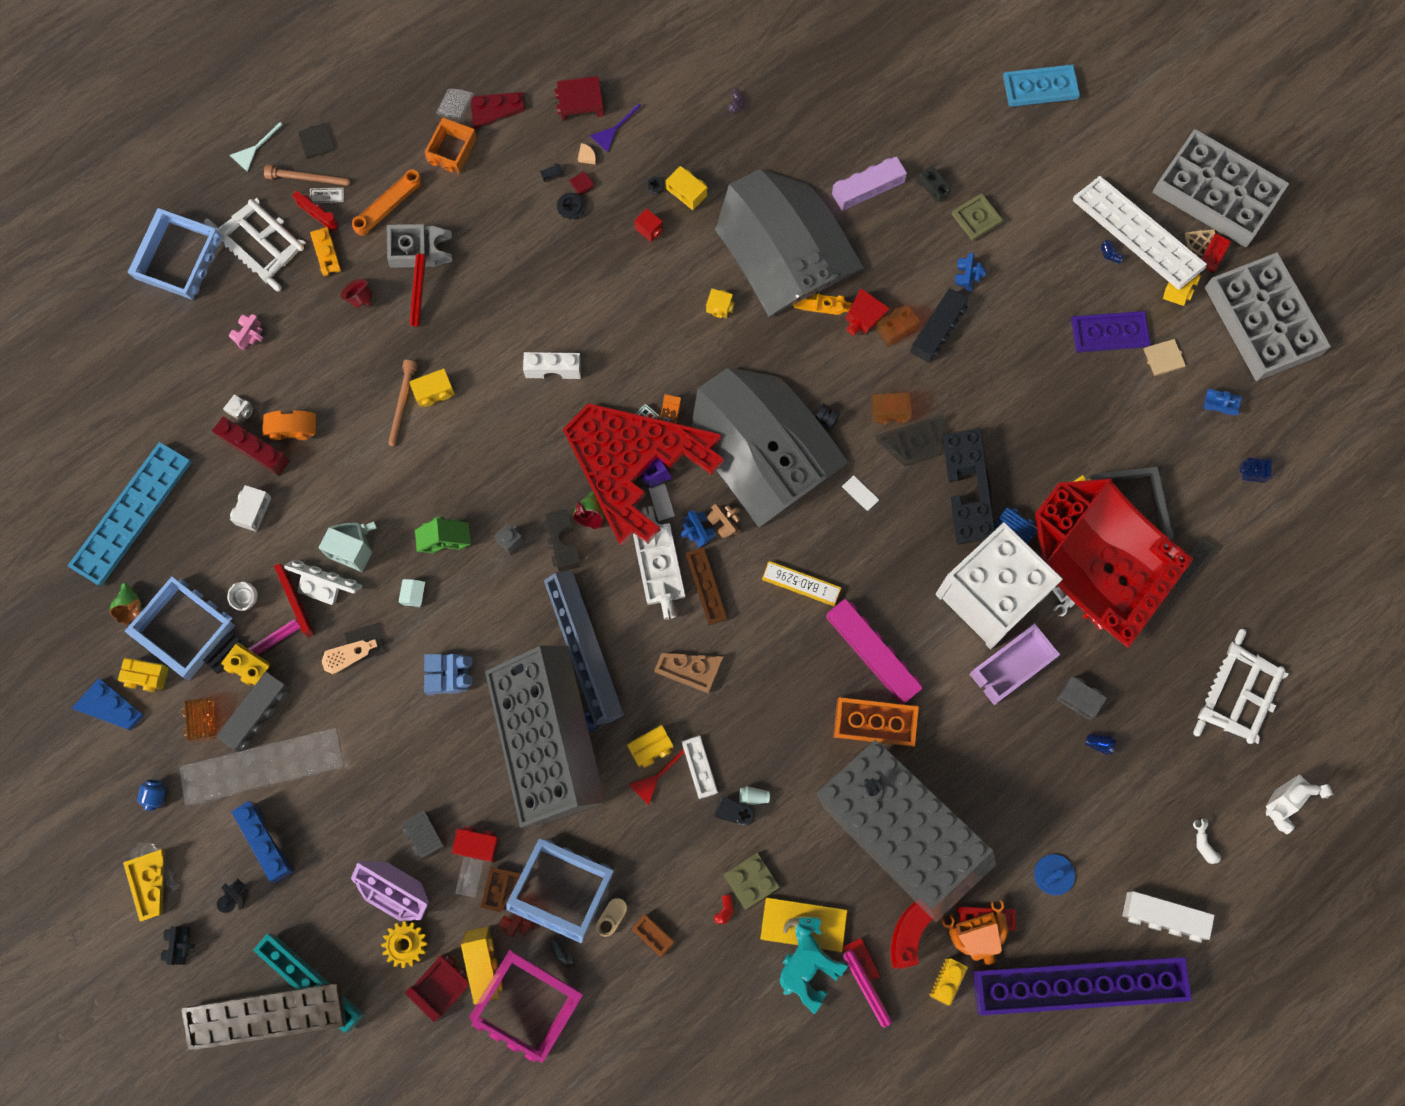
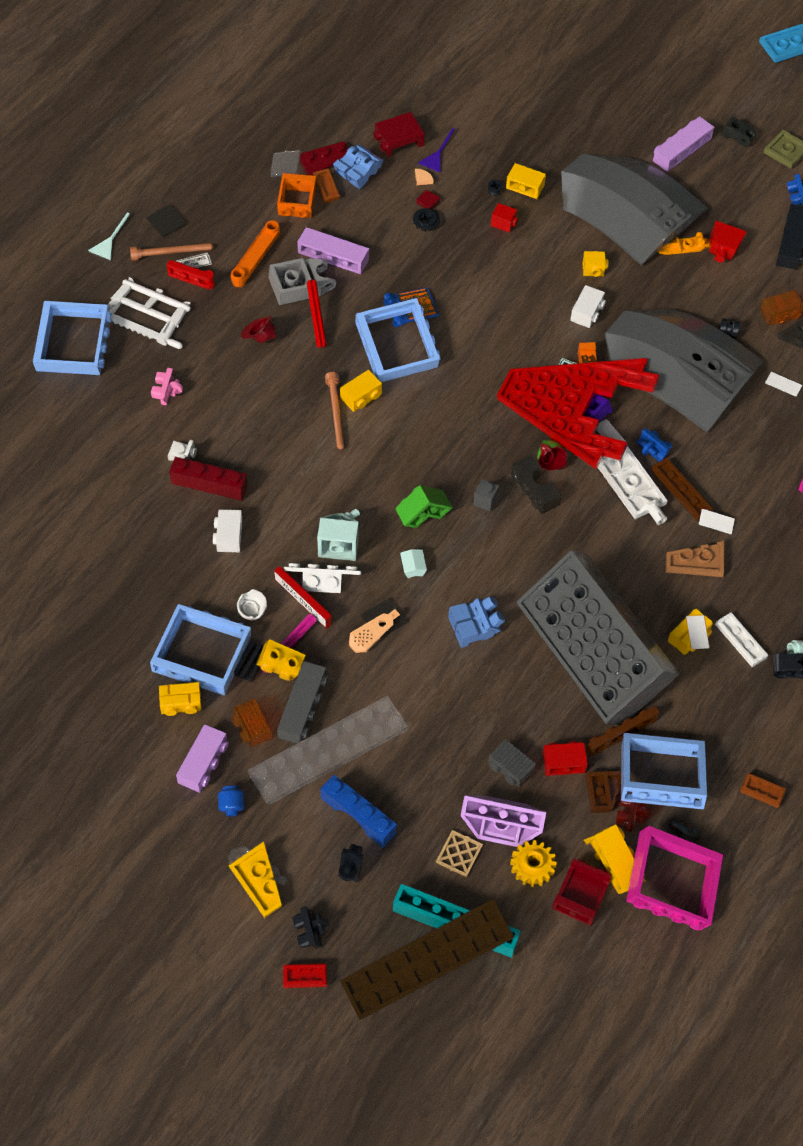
camera: 20 degrees left, 15 degrees down
(108, 705) = (154, 736): blue wing -> none
(126, 605) = (142, 642): hat -> none
(129, 514) = (111, 566): dark azure plate -> none
(141, 743) = (202, 758): none -> lavender brick
(156, 990) = (304, 975): none -> red plate
(295, 425) = (241, 451): orange brick -> none
(325, 251) = (212, 306): light orange plate -> none
(332, 922) = (466, 839): none -> tan window
(464, 219) = (334, 250): none -> lavender brick
(469, 877) = (571, 786): clear hips -> none
(480, 308) = (390, 311): none -> light blue window
(485, 140) = (326, 186): none -> dark orange tile
(523, 303) = (423, 297): none -> flag
(525, 125) = (358, 165): none -> medium blue hips
(534, 834) = (615, 734): none -> reddish brown plate
(551, 172) = (395, 198): black pin -> none
(565, 364) = (454, 346): white arch -> none
(583, 648) = (571, 538): sand blue brick -> none
(614, 913) = (717, 782): tan piece -> none
(646, 787) = (700, 669): red piece -> none
(653, 752) = (697, 632): none -> white sticker
(693, 352) = (588, 306): none -> white brick
(726, 631) = (716, 521): none -> white sticker
(729, 526) = (668, 428): medium nougat hips -> none
(738, 101) = (540, 108): clear purple arm -> none
(801, 583) = (765, 467): white tile -> none
(897, 325) = (757, 245): clear orange brick -> none

